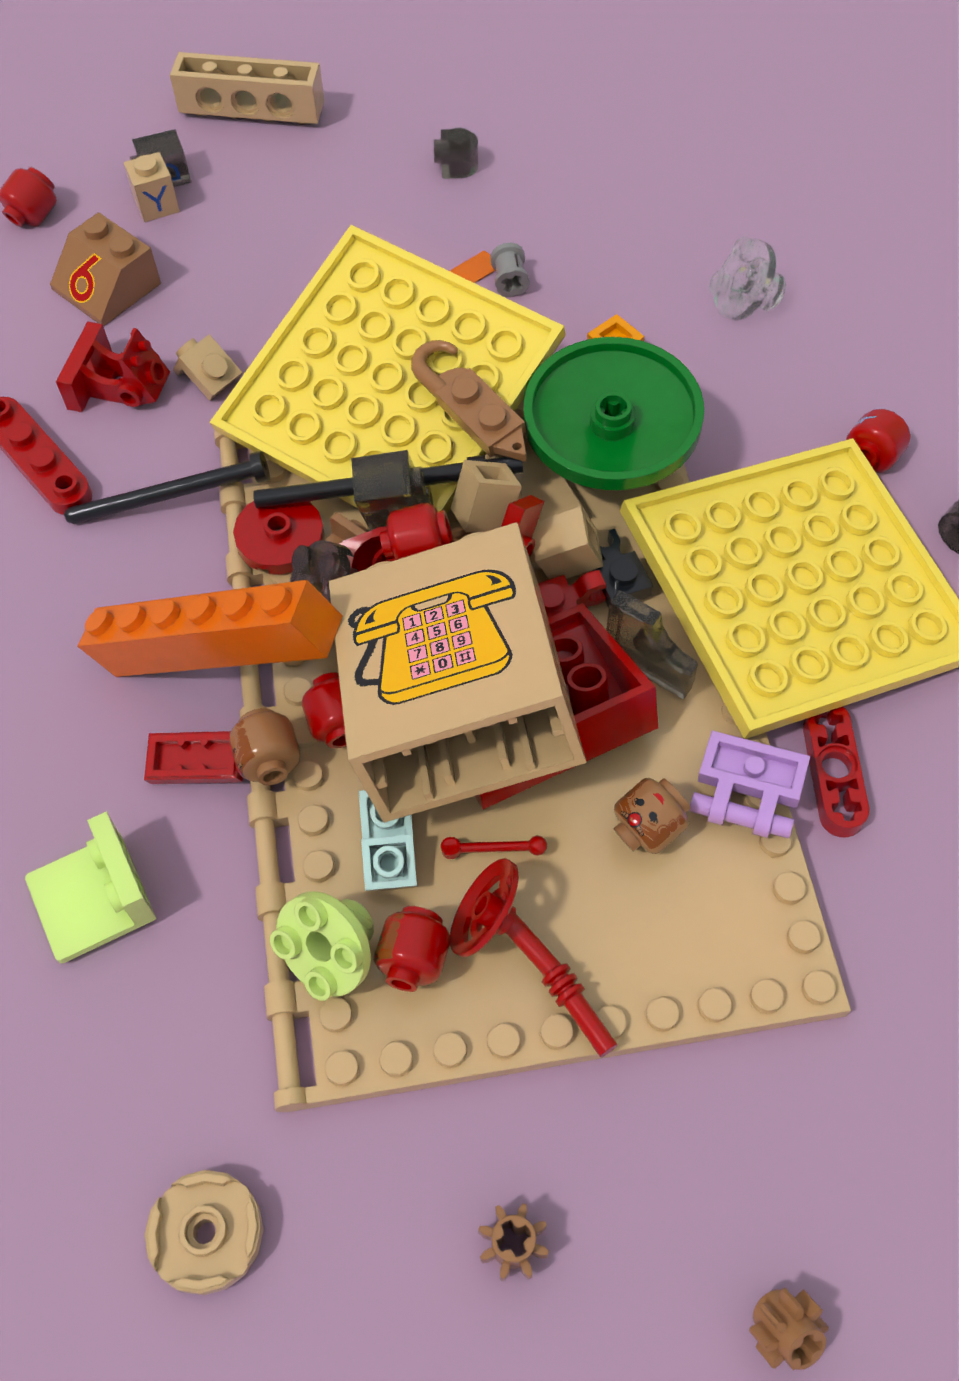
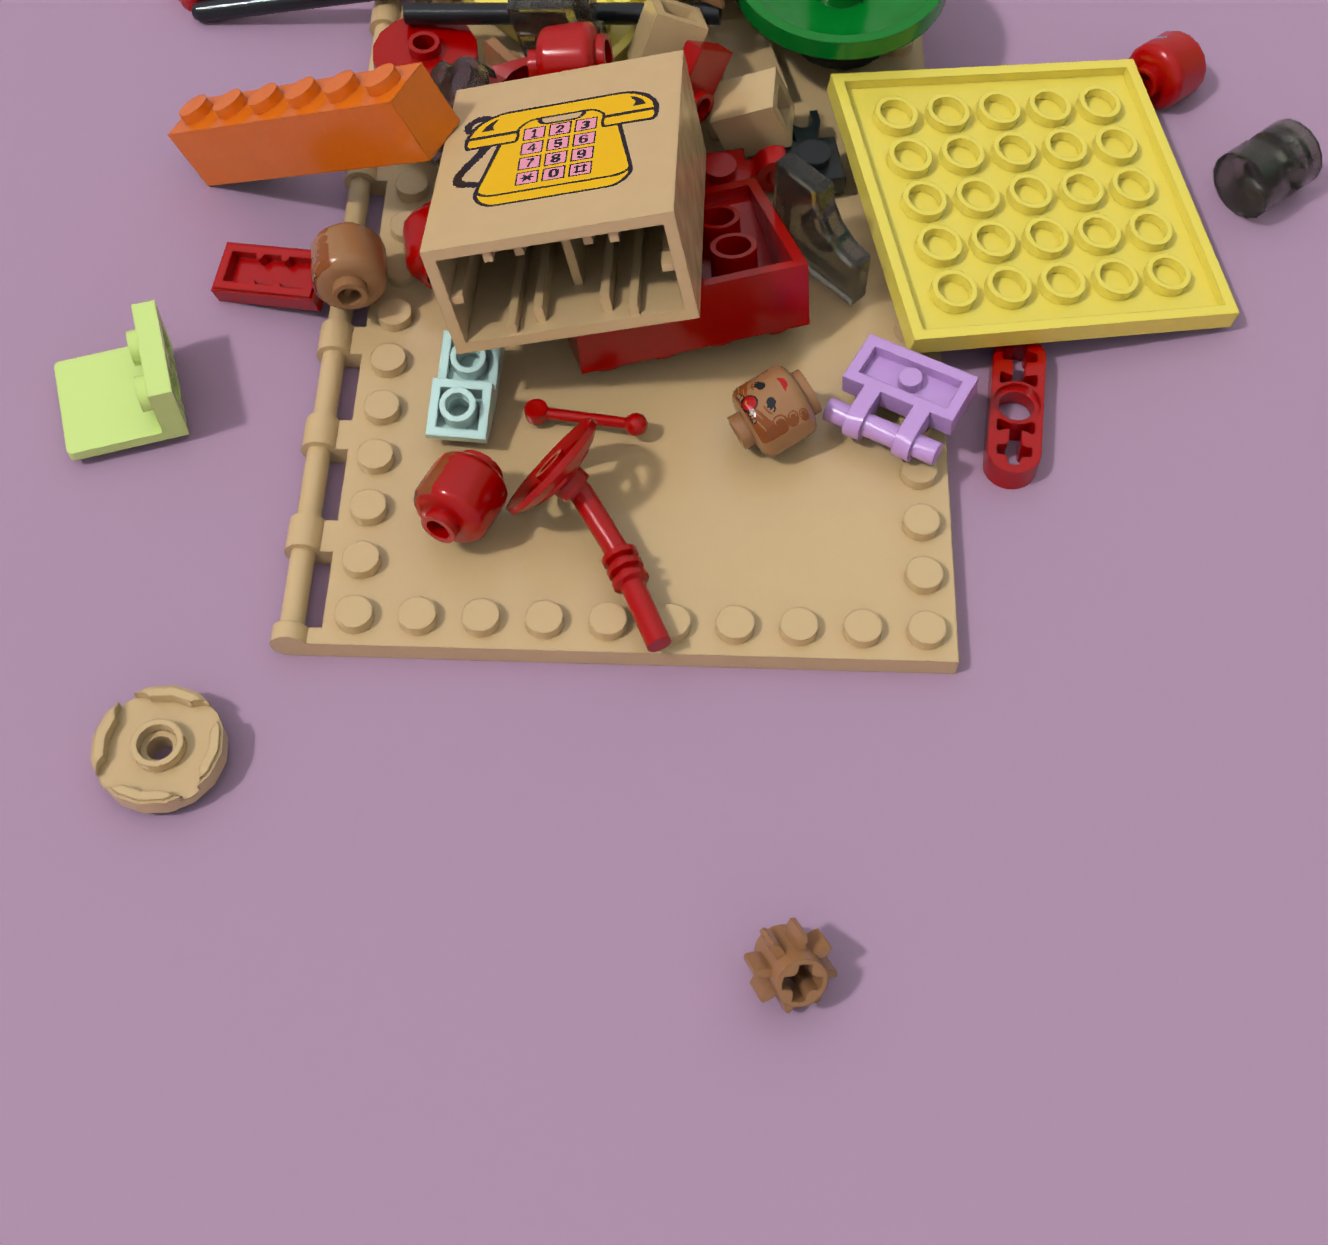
camera: 10 degrees right, 0 degrees up
(324, 942) = (362, 469): yellowish green plate -> none
(507, 1258) = (500, 801): medium nougat gear -> none

